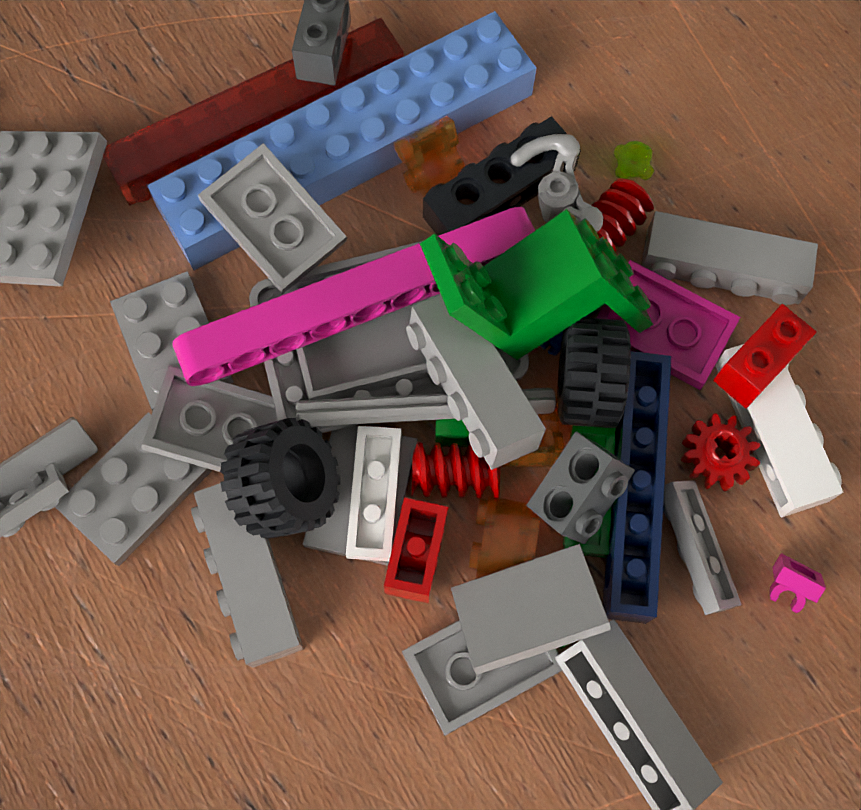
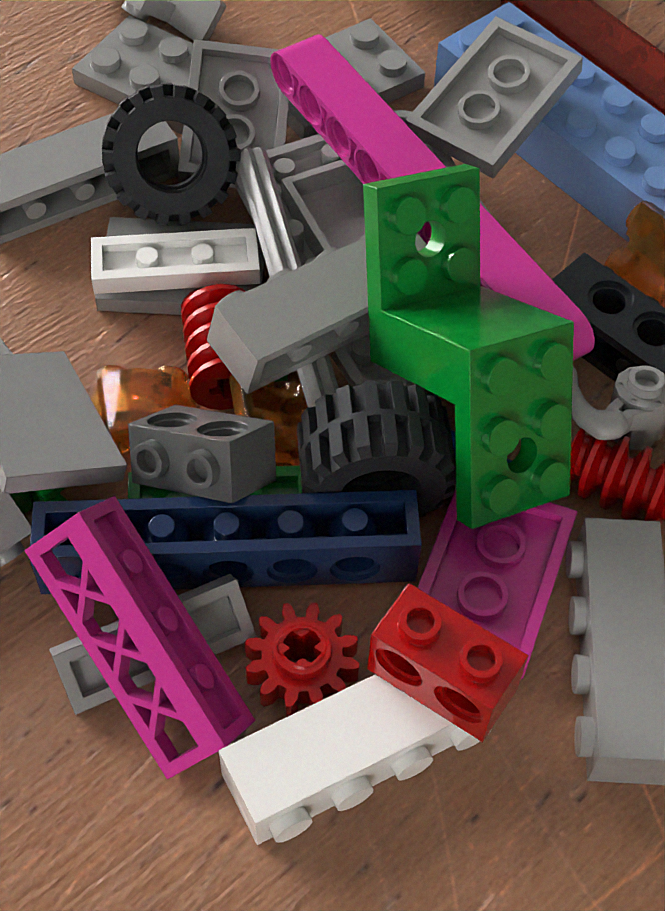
camera: 80 degrees right, 15 degrees down
(416, 550) = (105, 309): red brick -> none
(712, 535) = (150, 629): none -> dark pink fence
(796, 578) = (117, 782): dark pink tile -> none

